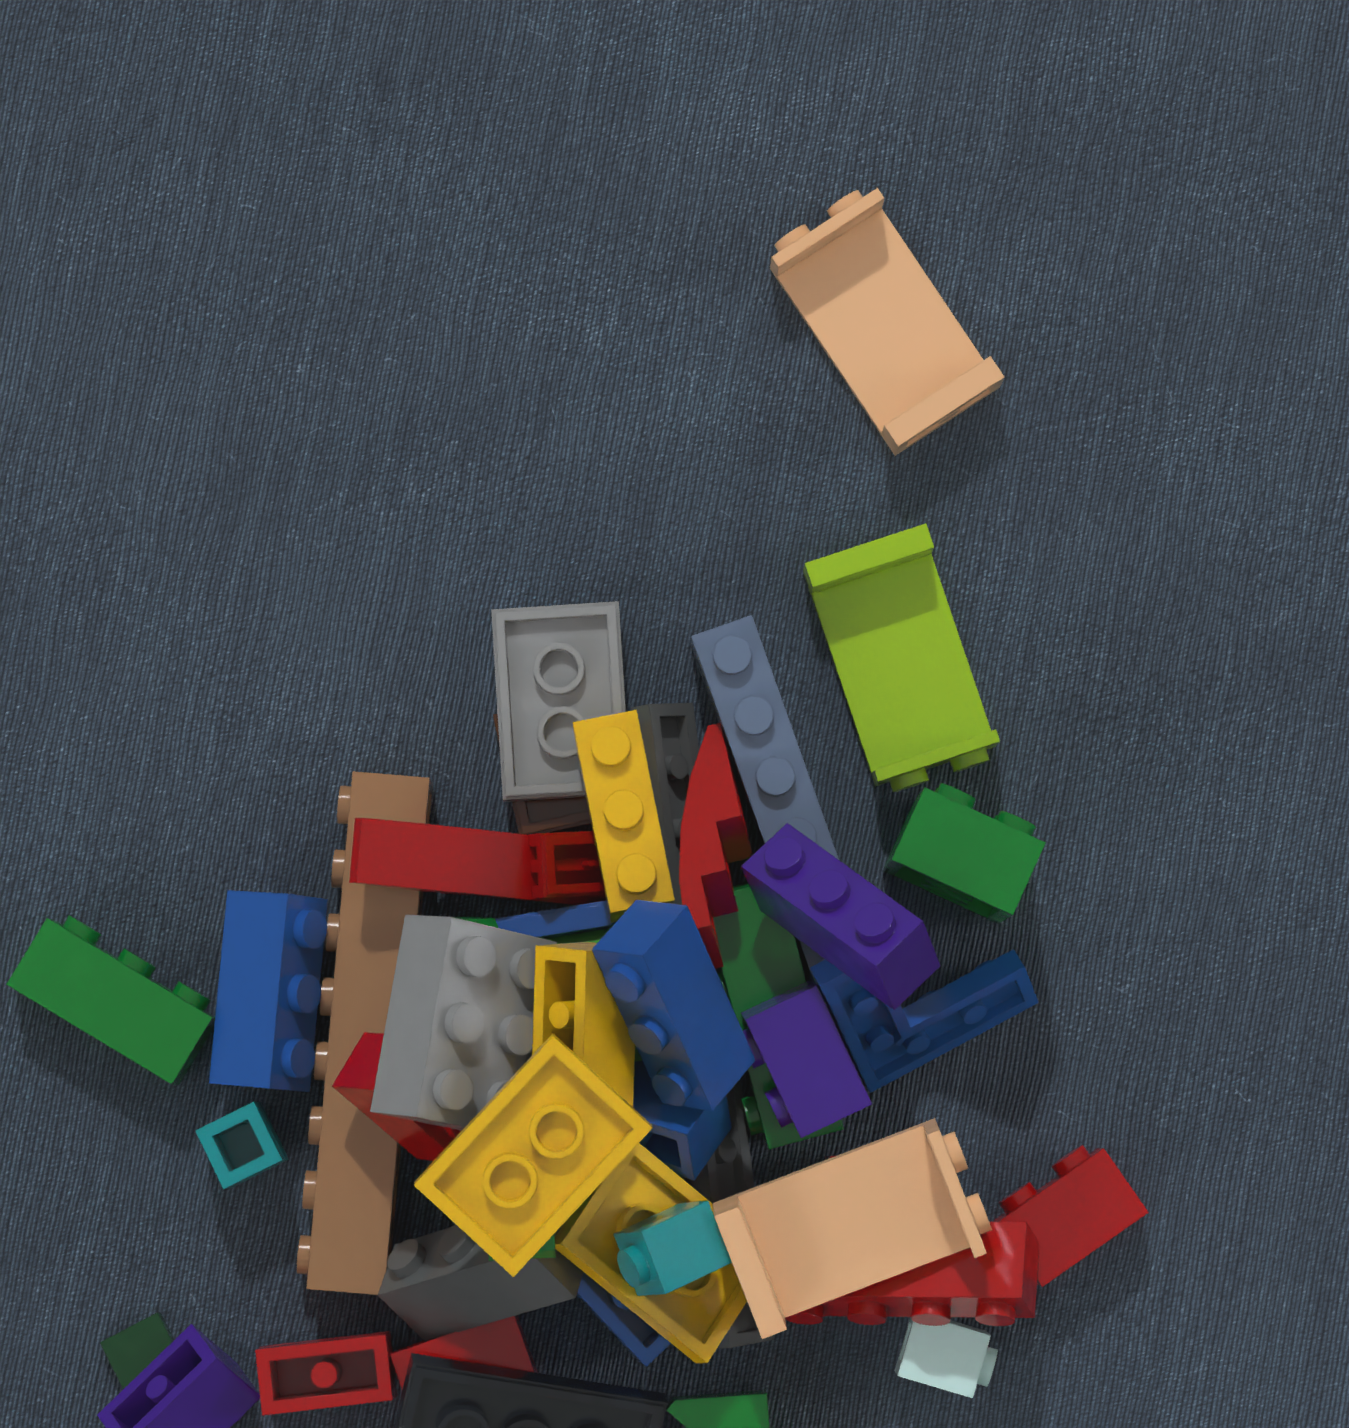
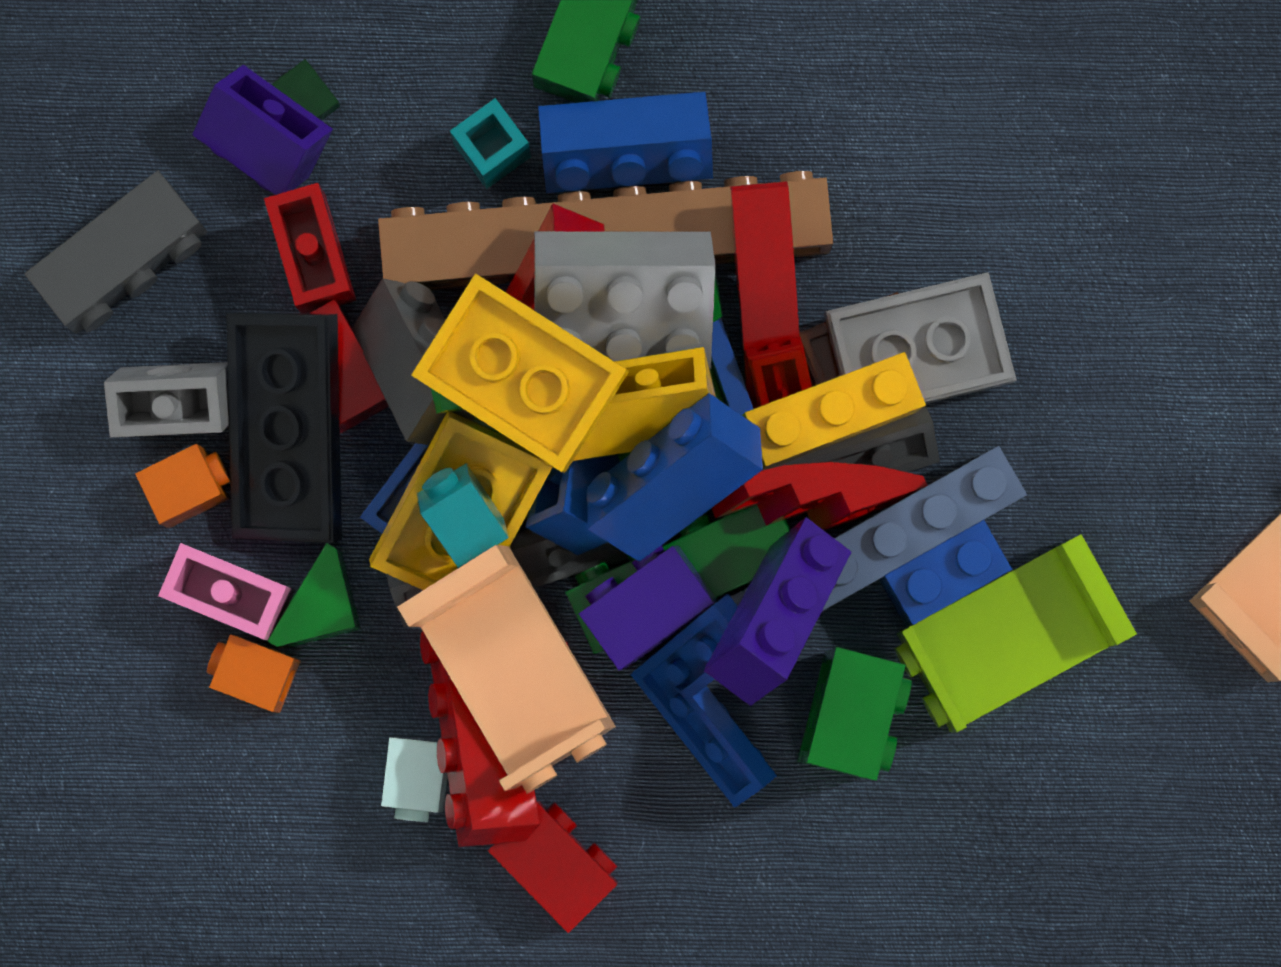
camera: 80 degrees right, 0 degrees up
(823, 720) = (945, 574): none -> blue brick

